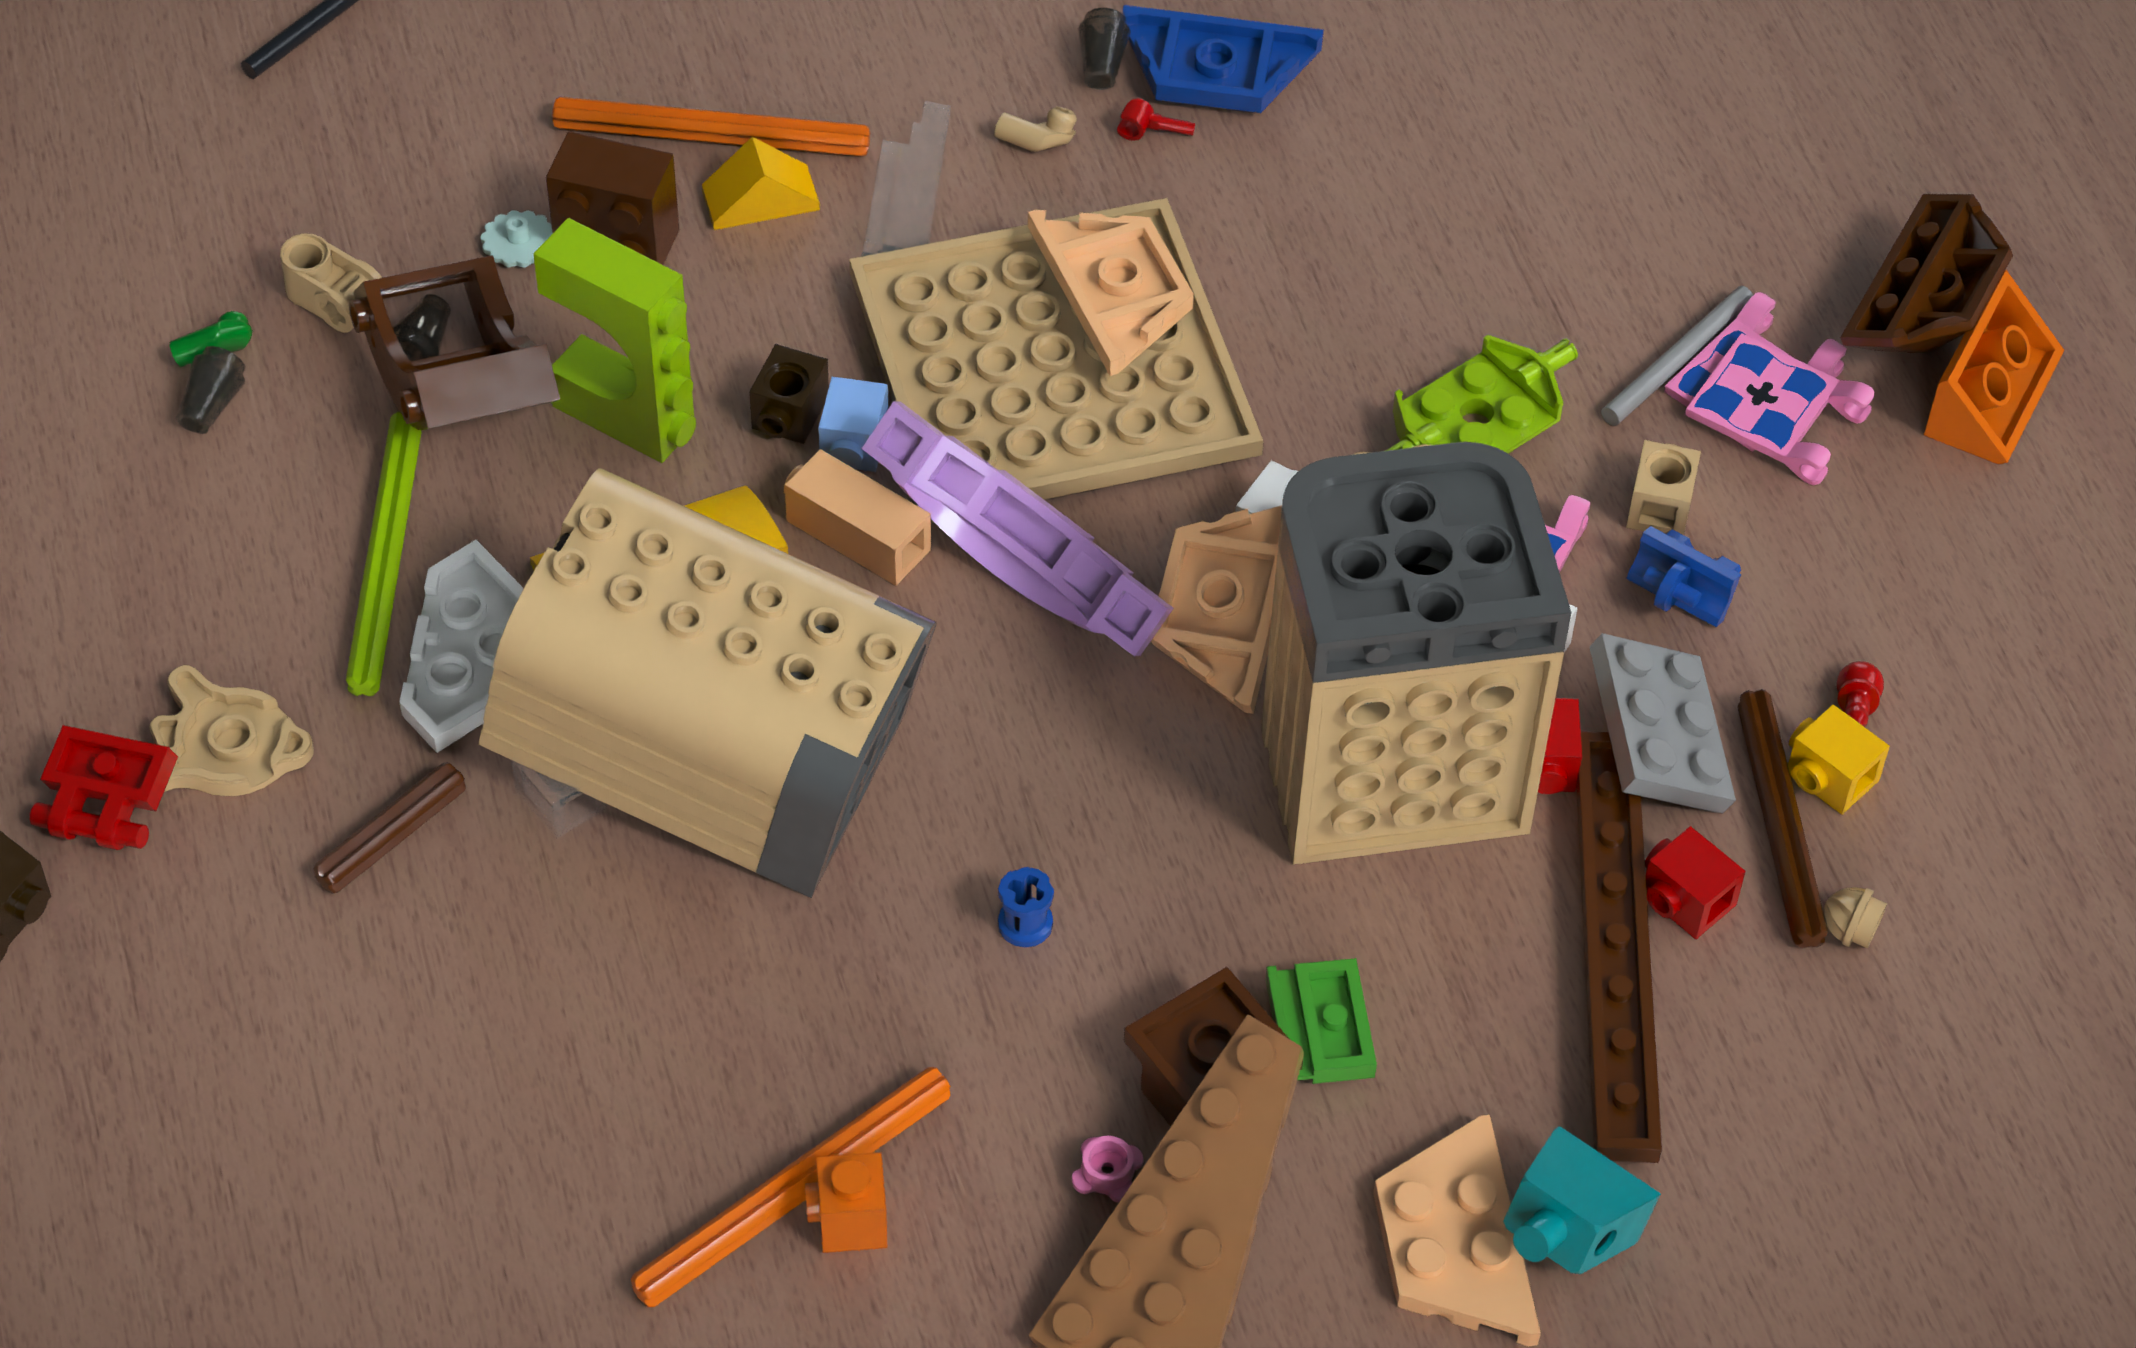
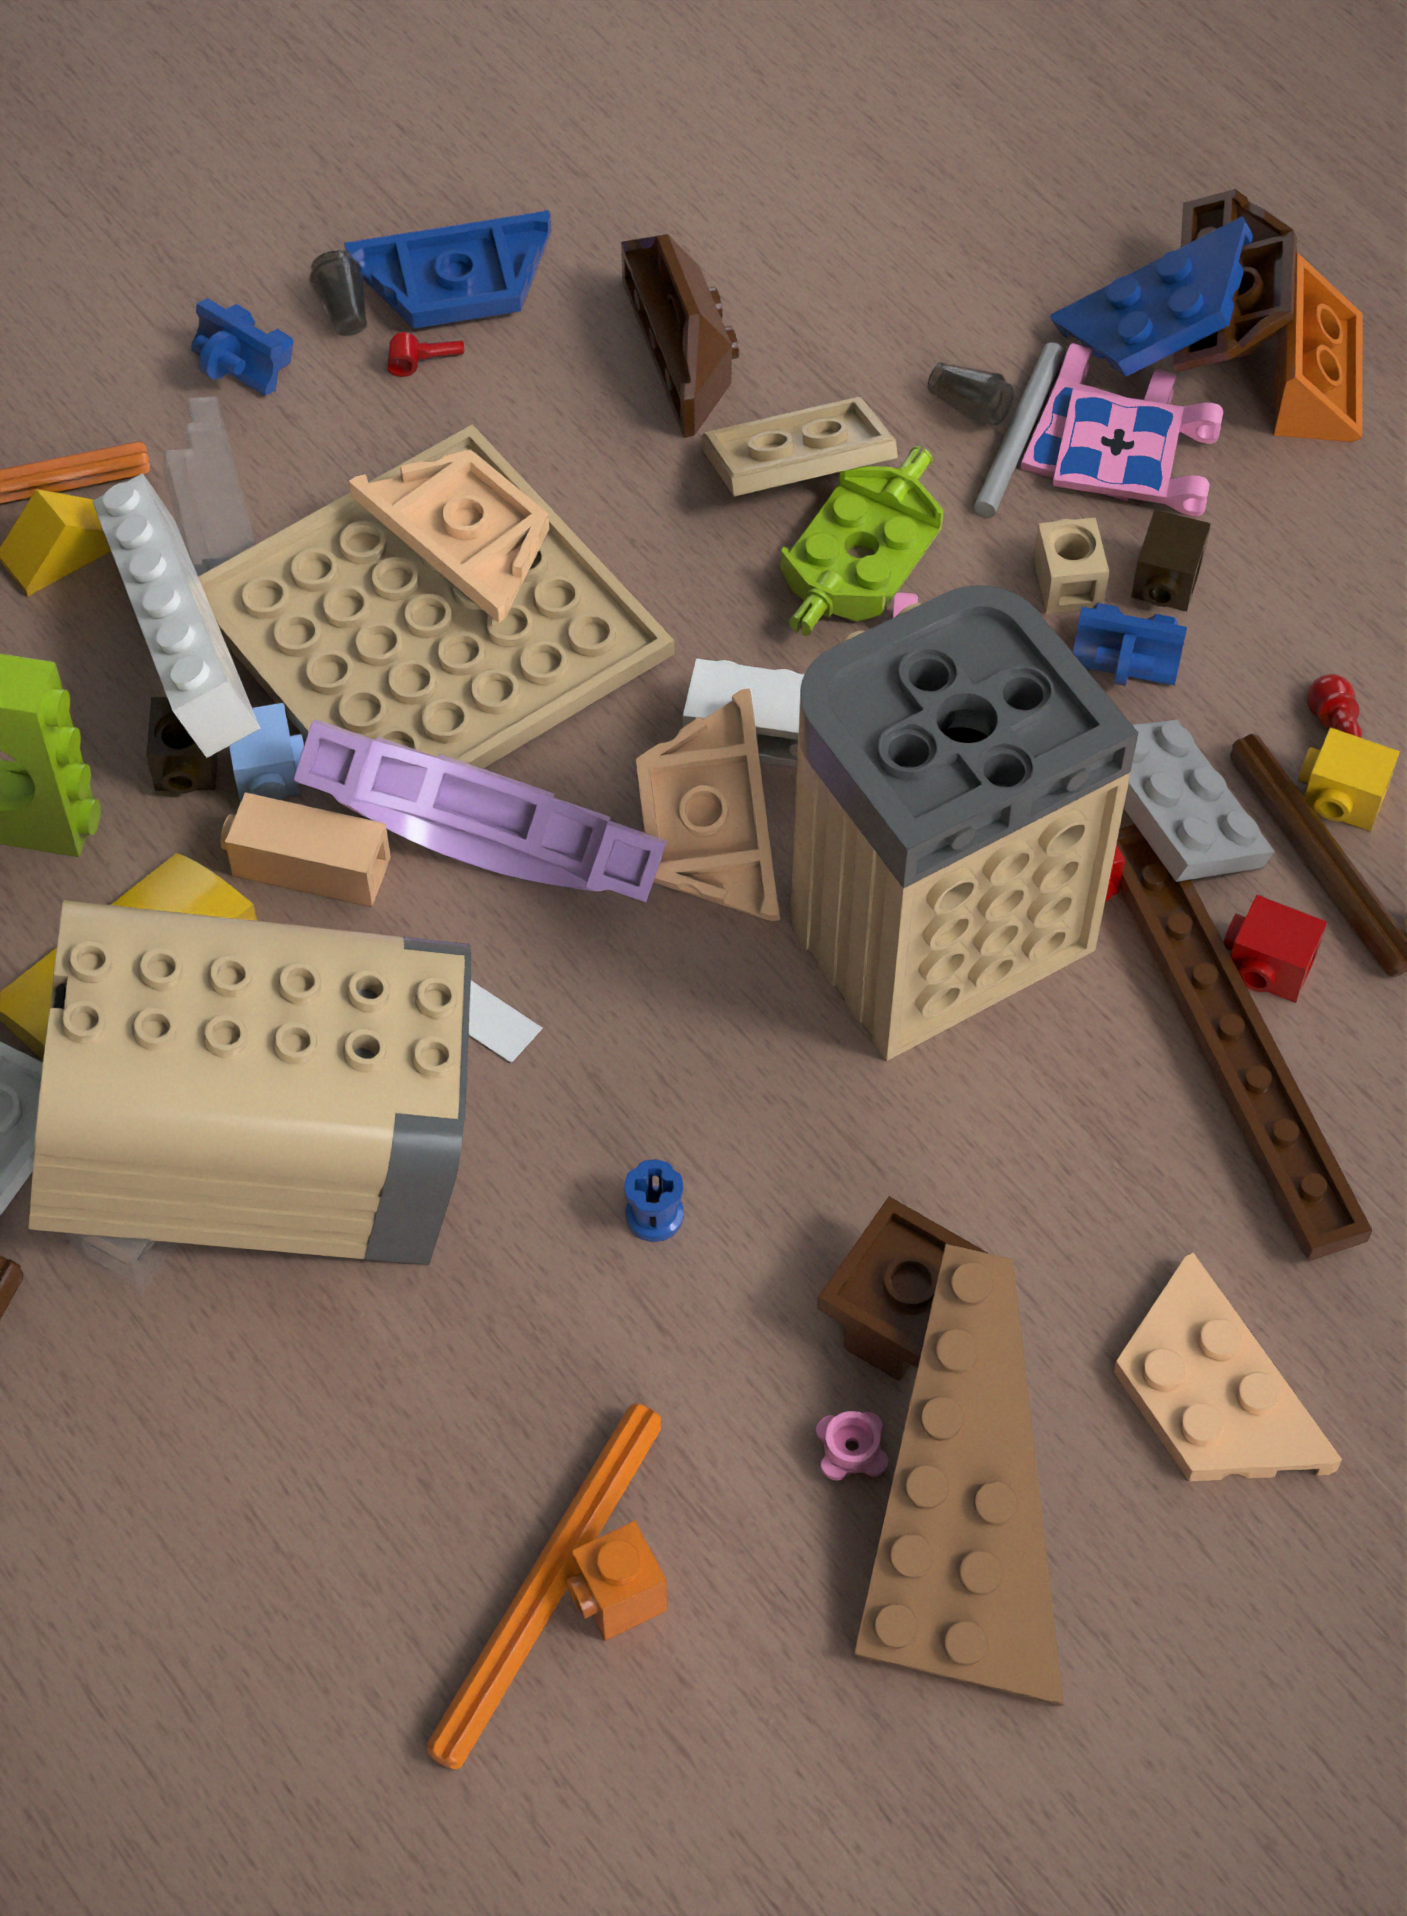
camera: 20 degrees left, 5 degrees up
(822, 279) = (175, 616): none -> white brick
(952, 708) = (499, 1024): none -> white sticker
(986, 67) = (234, 346): none -> blue hips
(1039, 136) = (316, 399): tan arm -> none
(1326, 1015) = (993, 1207): bright green plate -> none
(1399, 171) = (680, 326): none -> reddish brown wedge
(1457, 306) = (798, 446): none -> tan tile
(1577, 1206) = (1319, 1317): teal torso -> none
(1646, 309) = (972, 392): none -> clear smoke cone
(1760, 513) = (1170, 560): none -> dark brown brick
(1857, 278) = (1162, 303): none -> blue wing

